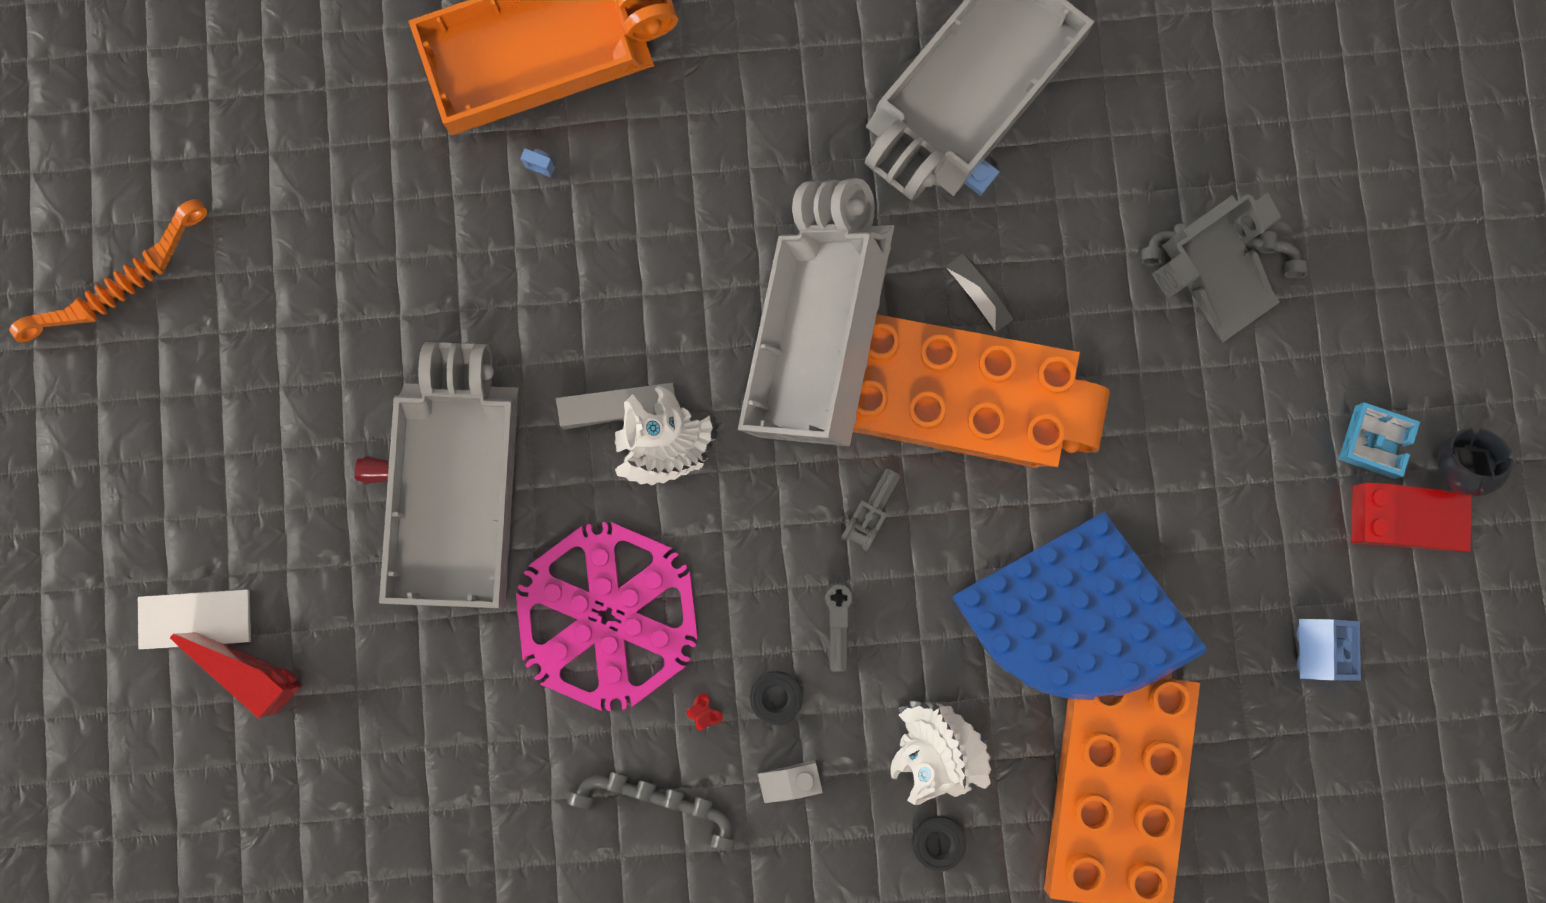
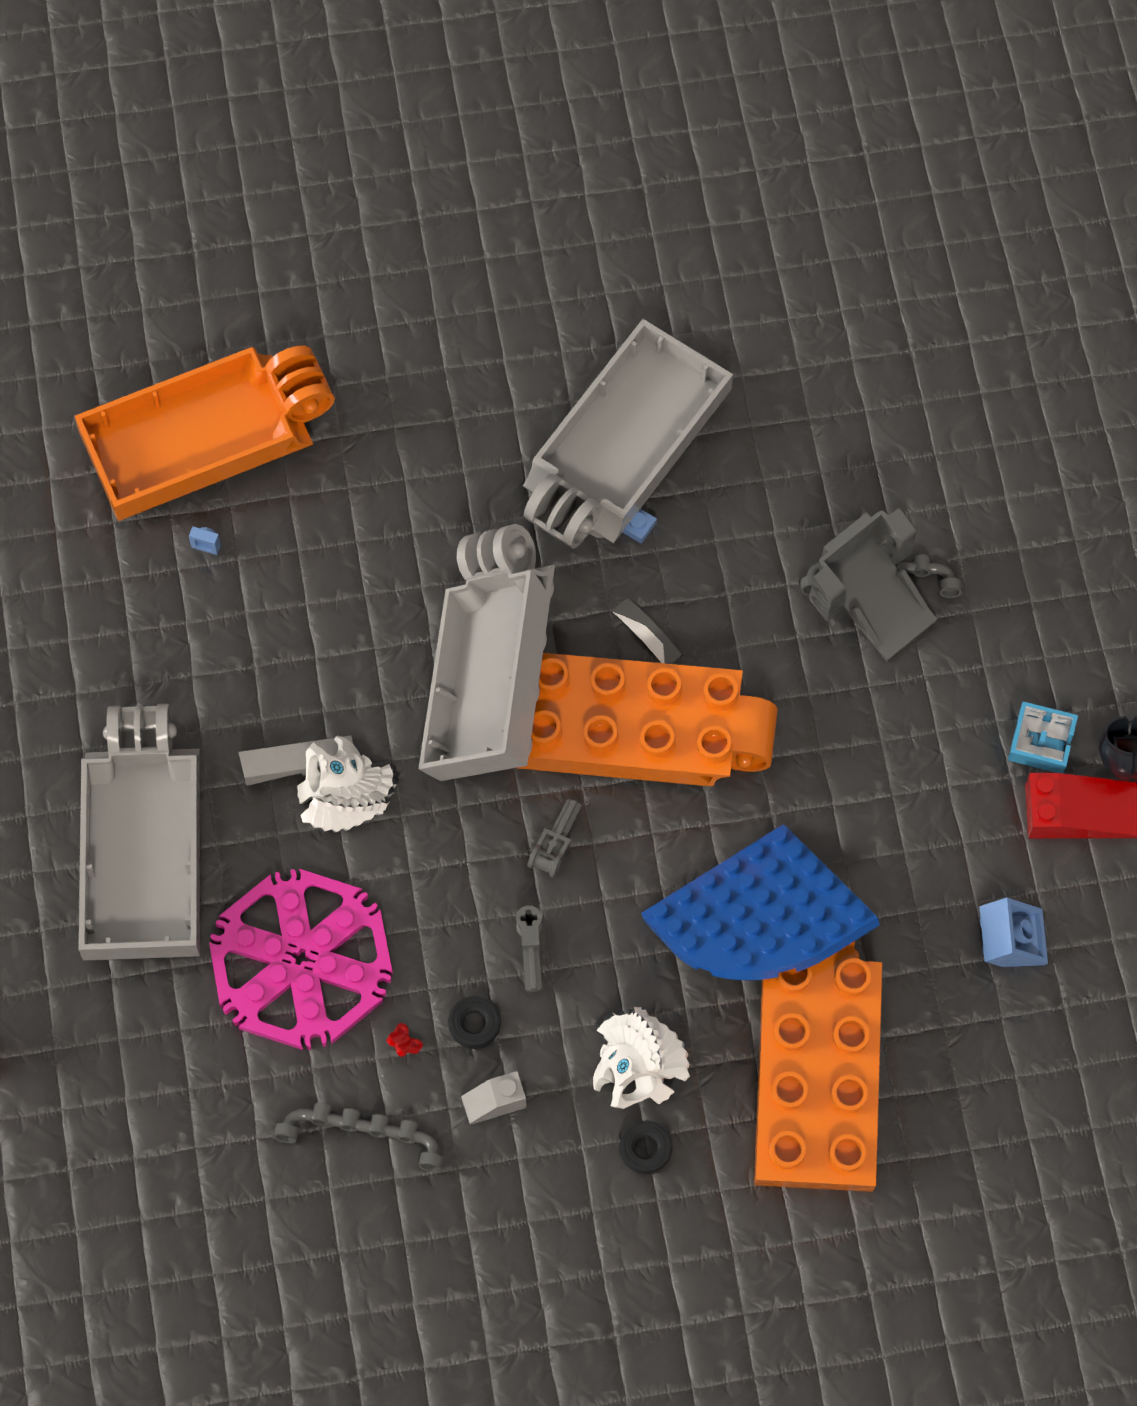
camera: 10 degrees left, 15 degrees down
(371, 470) = (60, 837): dark red cone -> none

